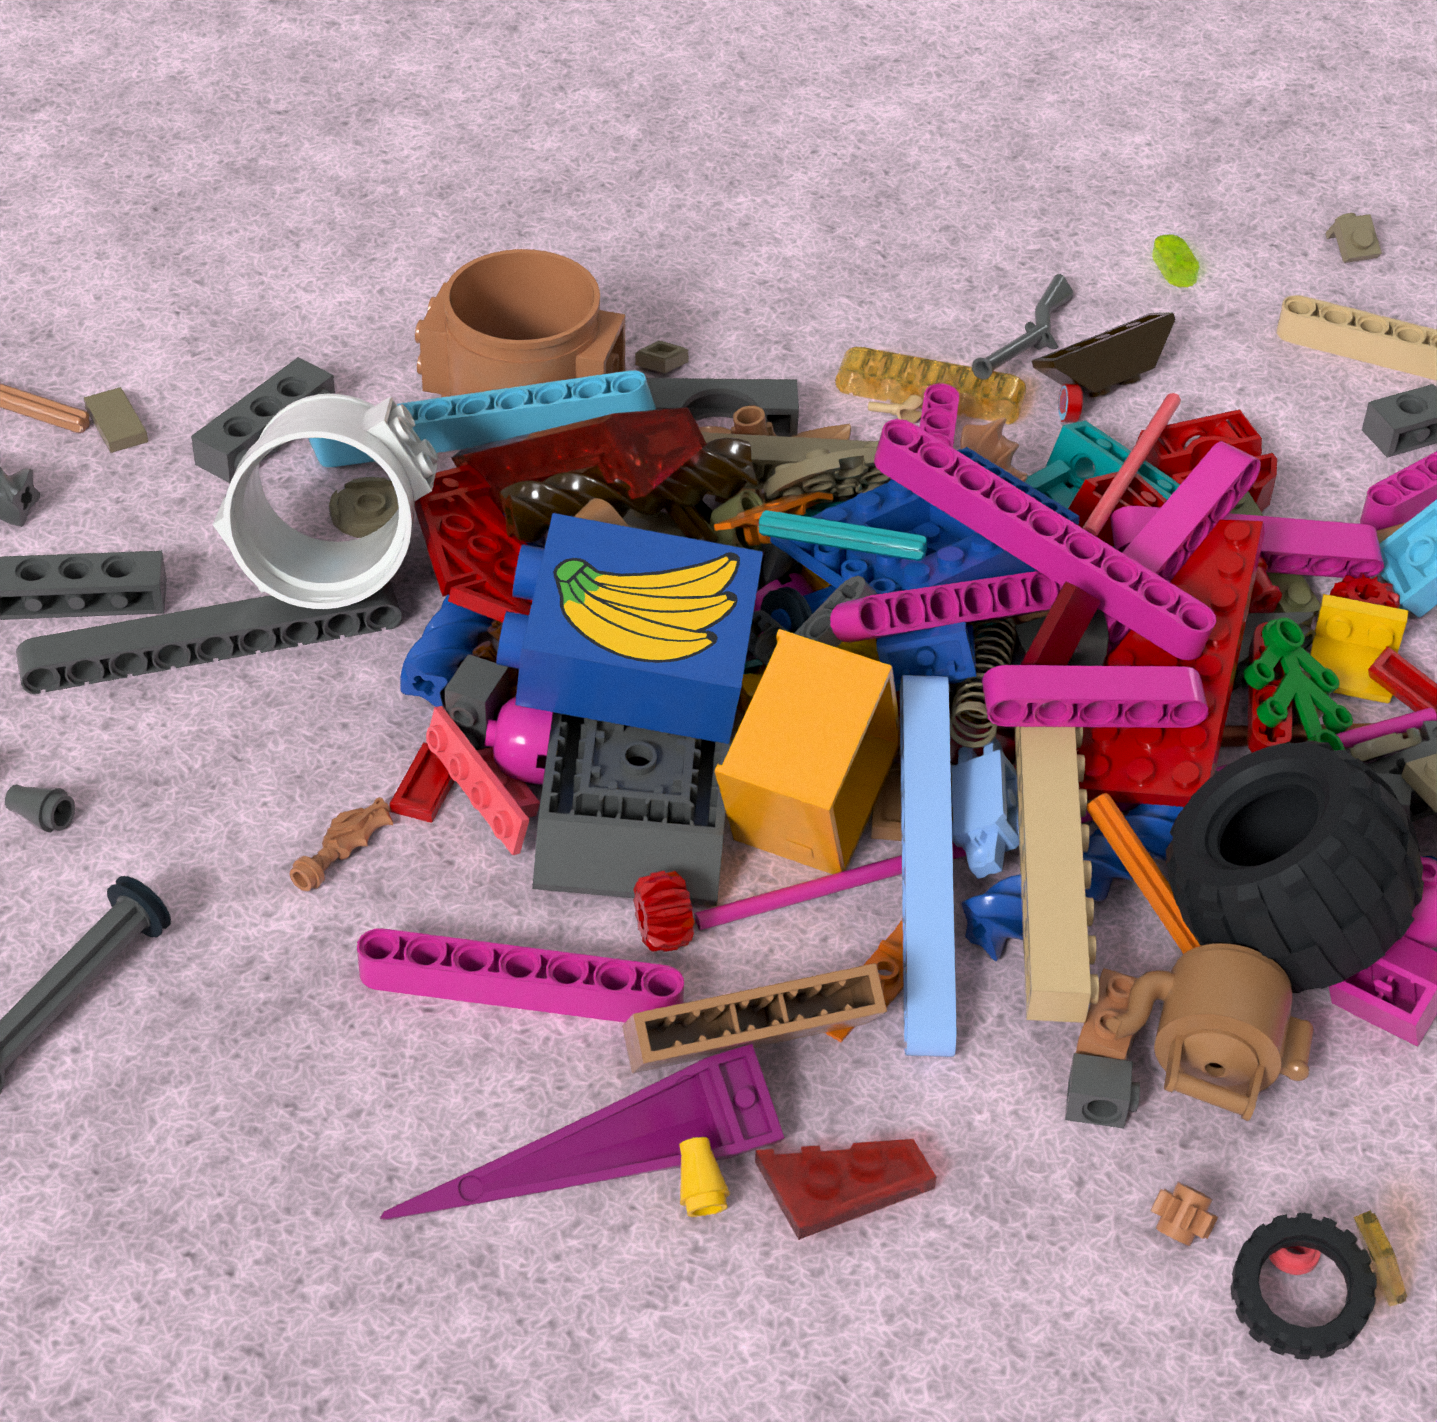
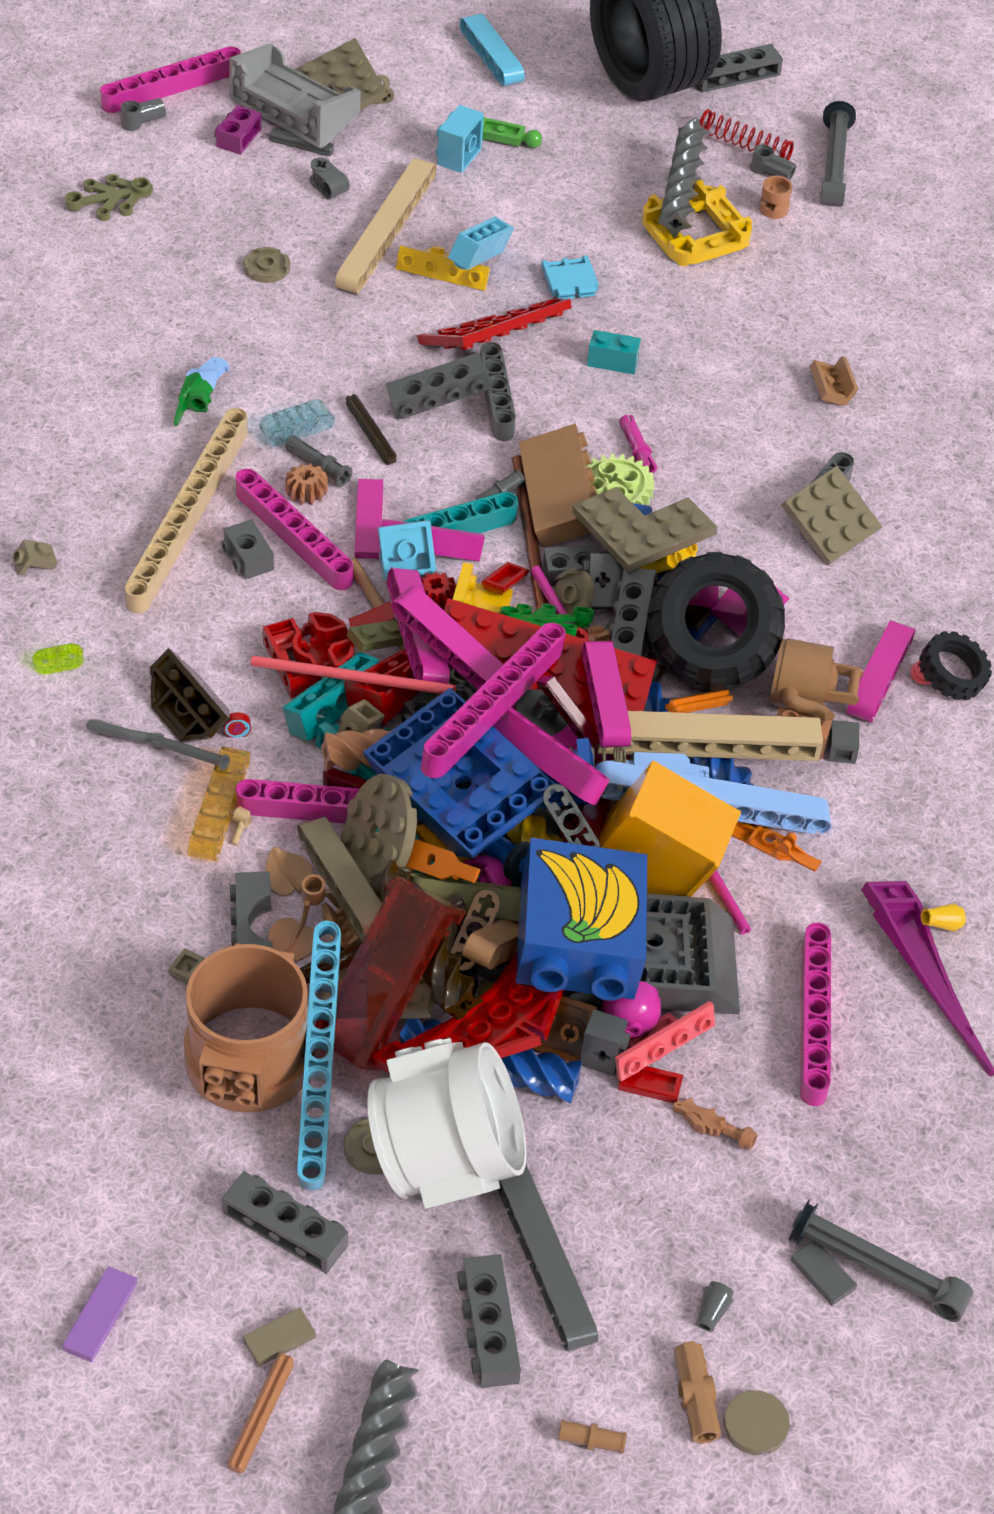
camera: 95 degrees left, 5 degrees up
(48, 943) = (823, 1272): none -> dark grey tile
(184, 290) = (100, 1314): none -> medium lavender tile
(663, 911) = (758, 937): red gear -> none
(753, 1017) = (848, 883): medium nougat brick -> none
(839, 1185) = (926, 857): clear red wing -> none
(843, 535) = (493, 804): teal axle -> none
(1059, 479) = (361, 718): none -> dark tan brick
(1184, 1213) = (918, 710): nougat gear -> none
(1279, 1170) = (881, 670): none -> dark pink beam
(1382, 1256) = (936, 626): clear yellow tile -> none

